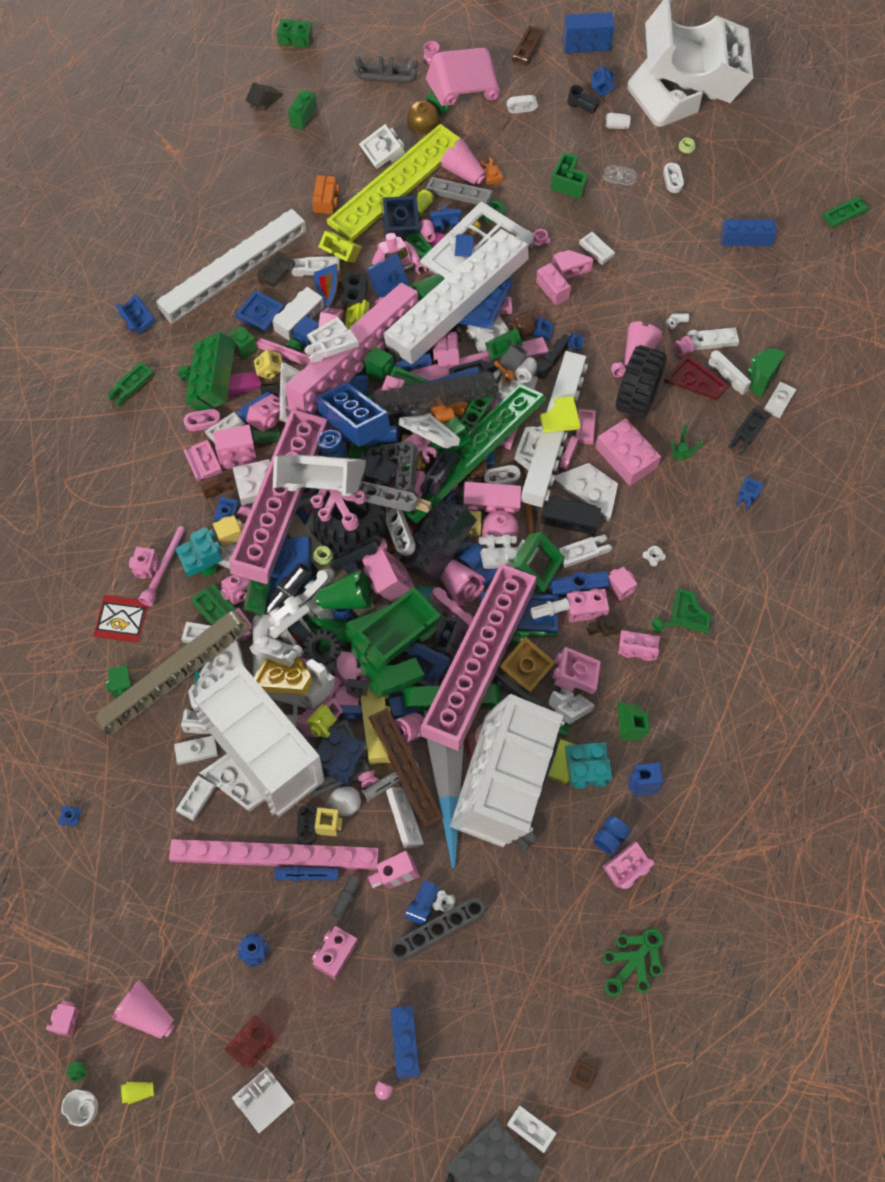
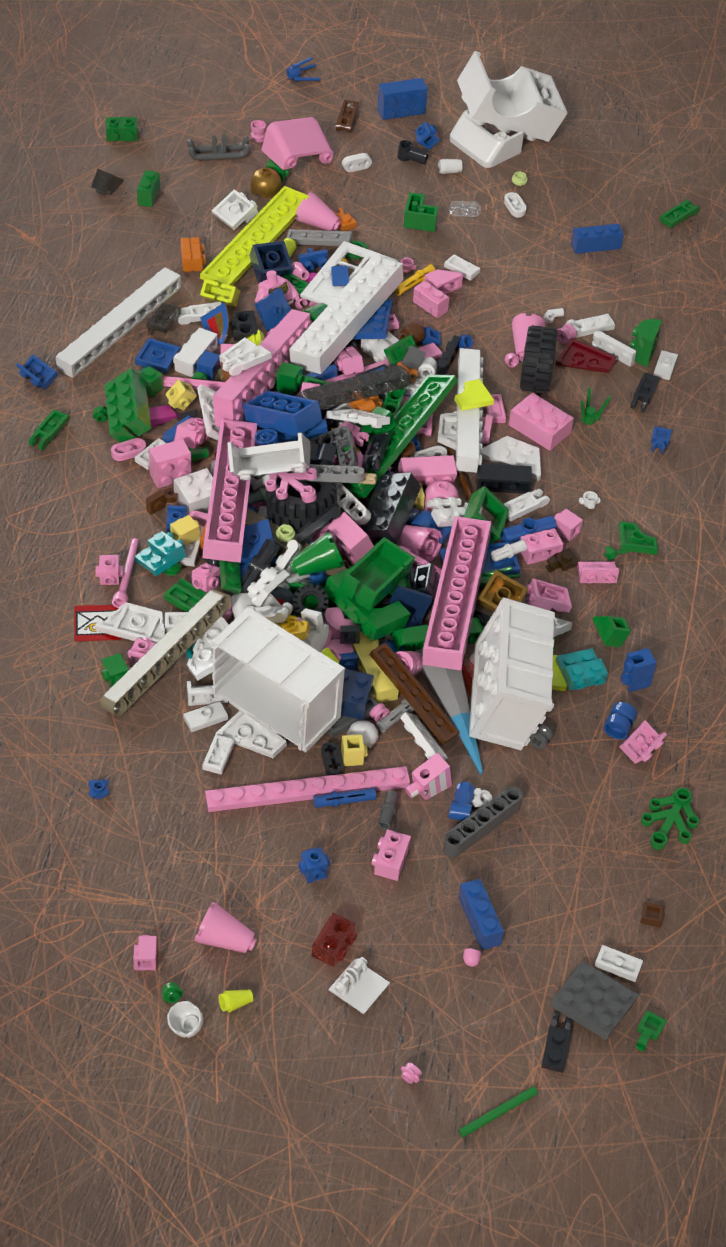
camera: 15 degrees left, 15 degrees down
(145, 666) = (139, 649): none -> bright pink brick
(154, 629) = (133, 622): none -> white wing
(202, 461) = (139, 482): bright pink plate -> none
(543, 256) = (417, 278): none -> yellow pin

